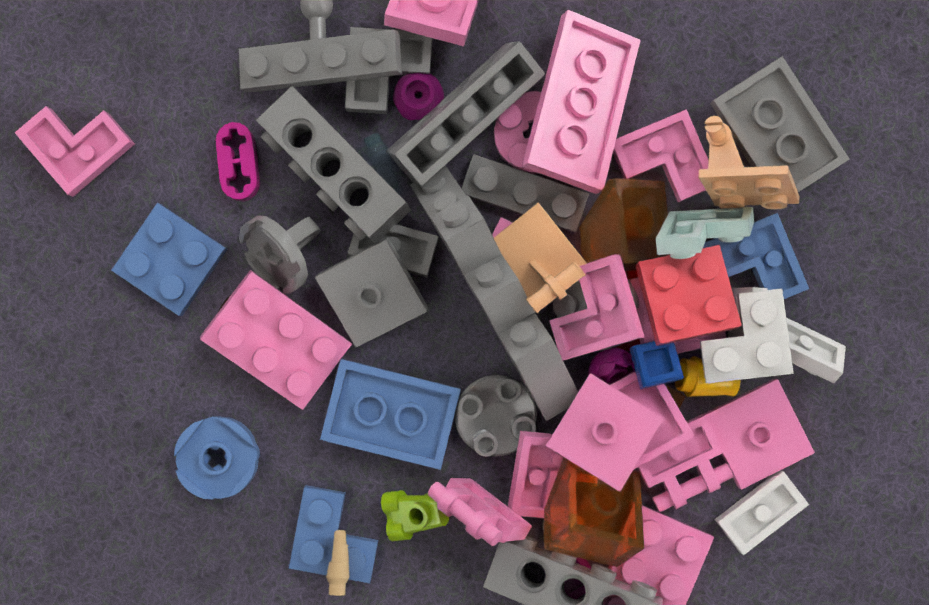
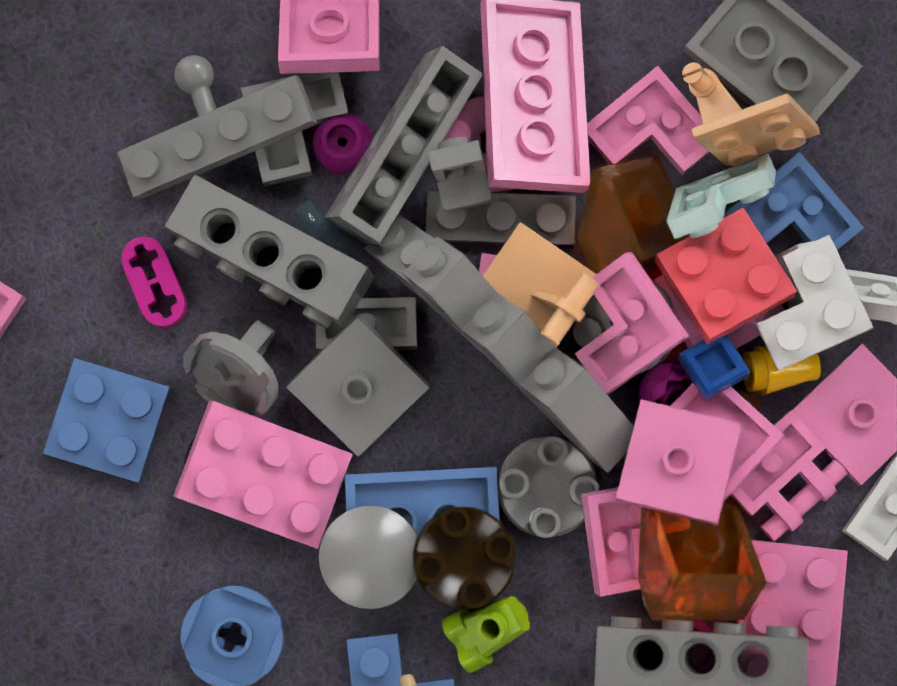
camera: 15 degrees left, 5 degrees down
(340, 430) = (368, 557): none -> light grey dish
(412, 454) = (464, 558): none -> dark brown dish
(479, 511) = (562, 599): bright pink plate -> none
(502, 149) = (460, 174): none -> light grey bracket

